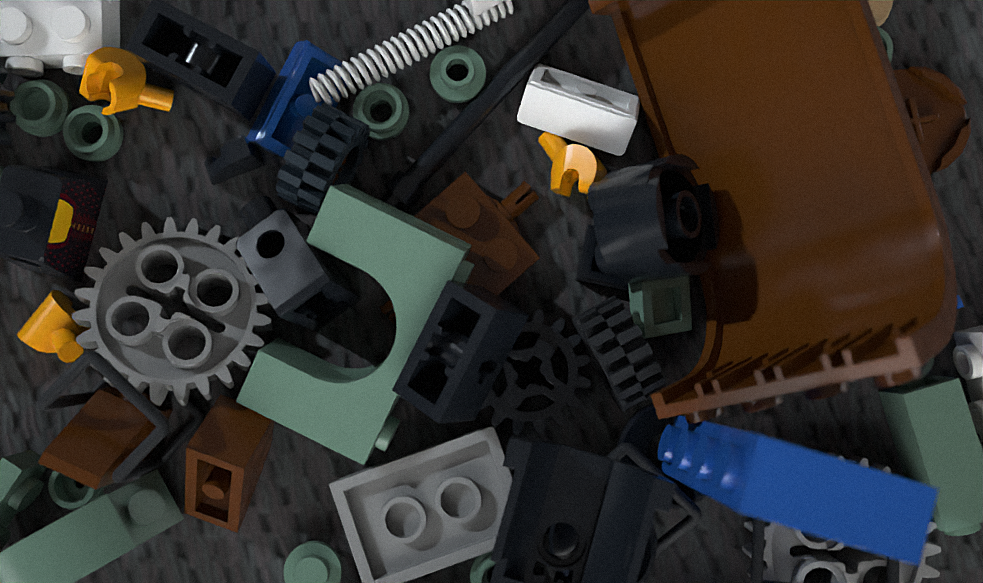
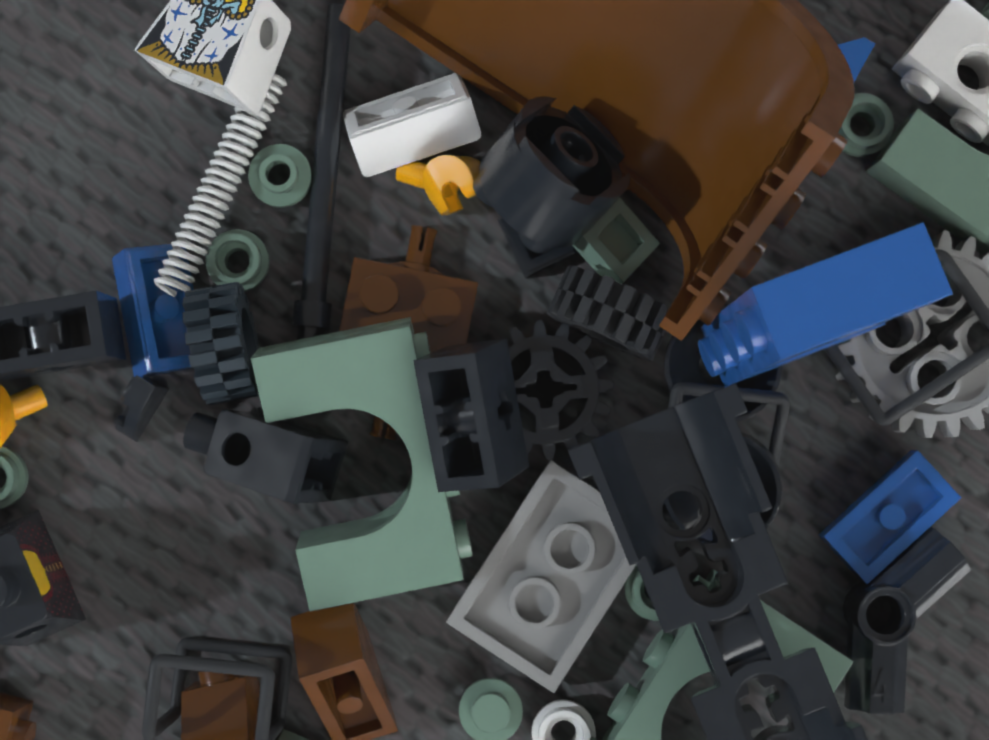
camera: 30 degrees left, 0 degrees up
(53, 329) = (99, 673): light orange piece -> none
(150, 355) = (185, 519): light grey gear -> none

